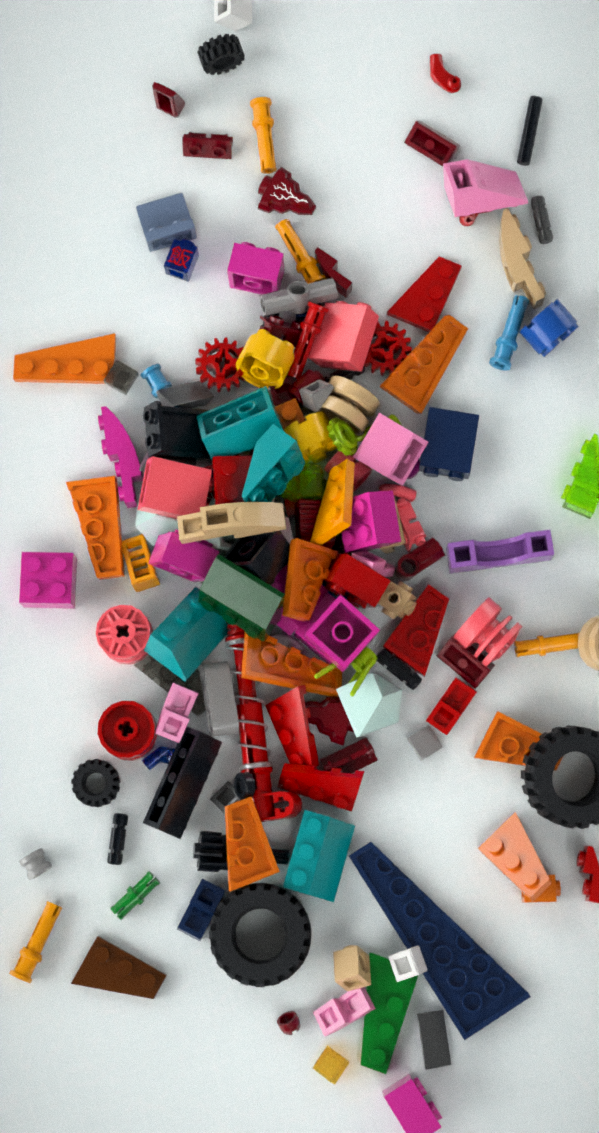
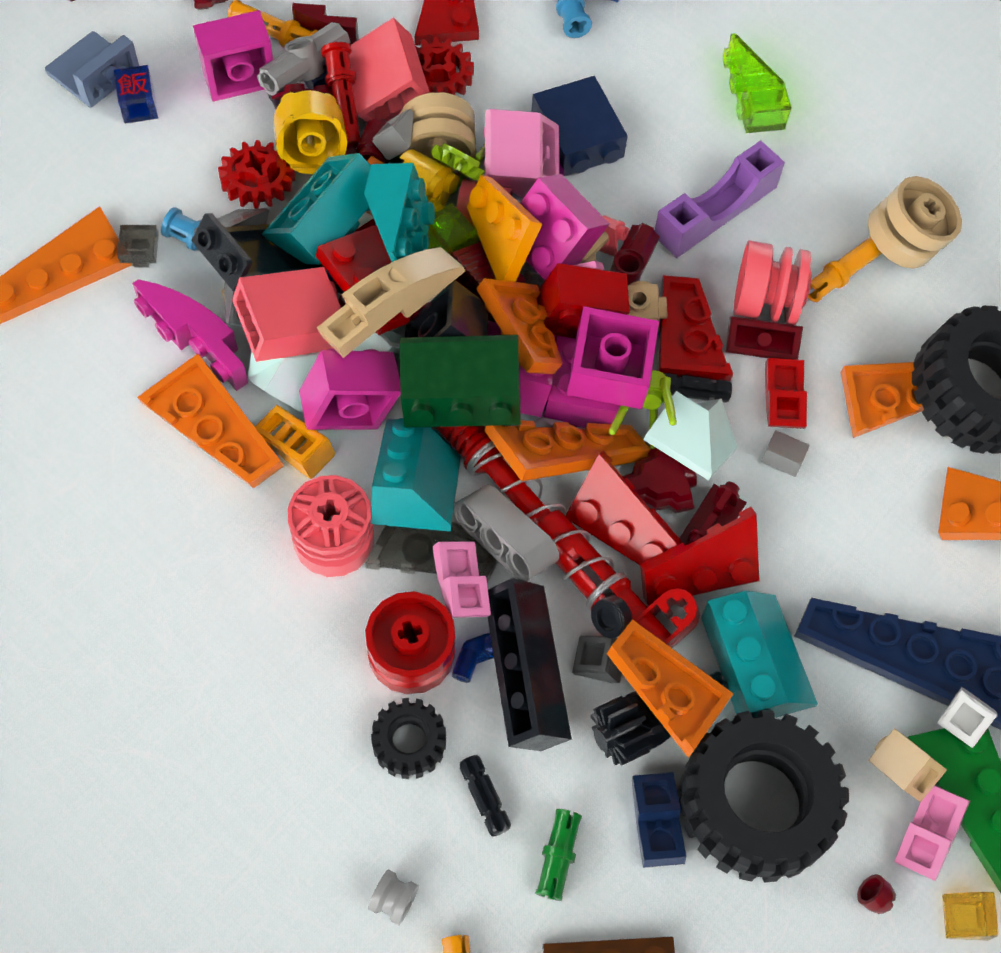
camera: 40 degrees left, 15 degrees down
(48, 580) = (185, 520): dark pink brick -> none
(424, 367) = (496, 62): orange wing -> none

